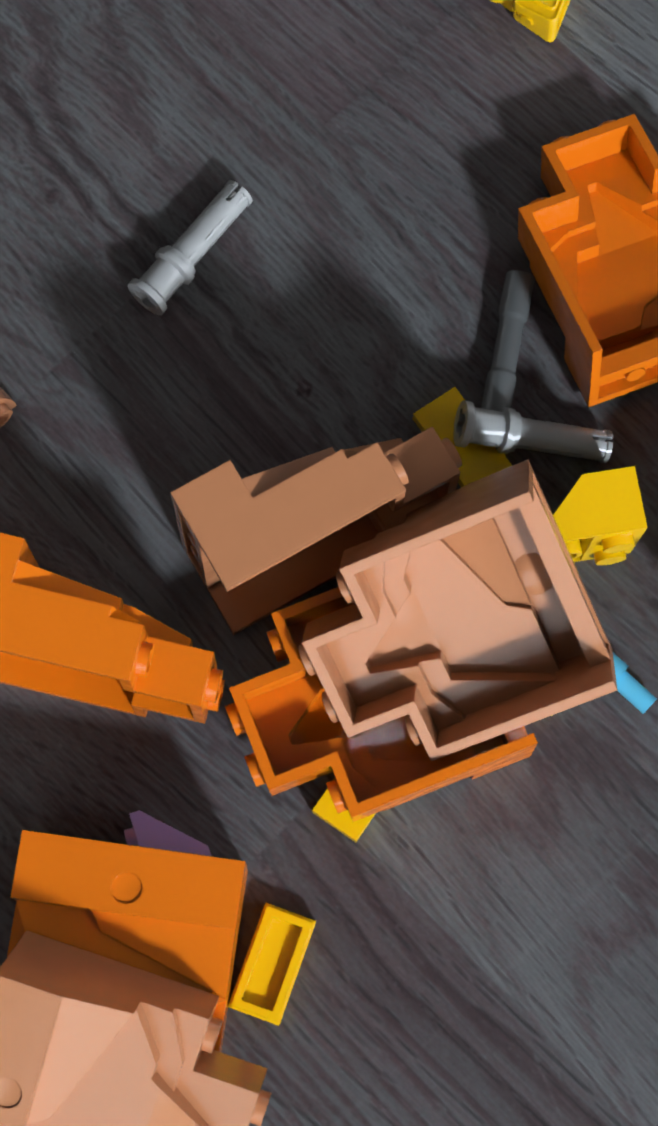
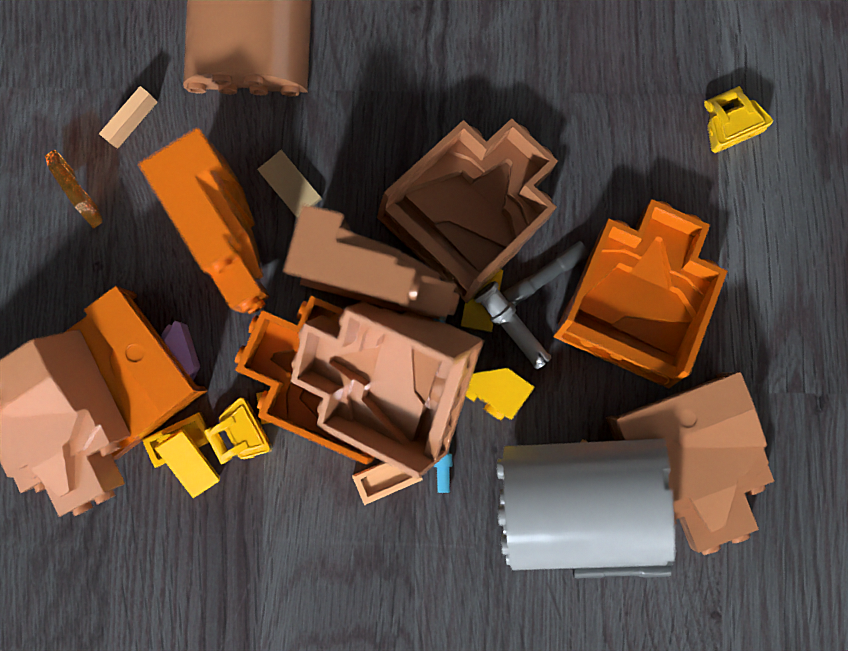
camera: 50 degrees right, 10 degrees up
(103, 528) = (289, 183): none -> tan tile
(176, 263) = (436, 94): light grey pin -> none
(314, 975) = (187, 463): none -> yellow tile
(342, 869) = (243, 431): none -> yellow piece
(344, 337) = (471, 203): none -> nougat panel
(567, 758) = (381, 481): none -> light nougat tile

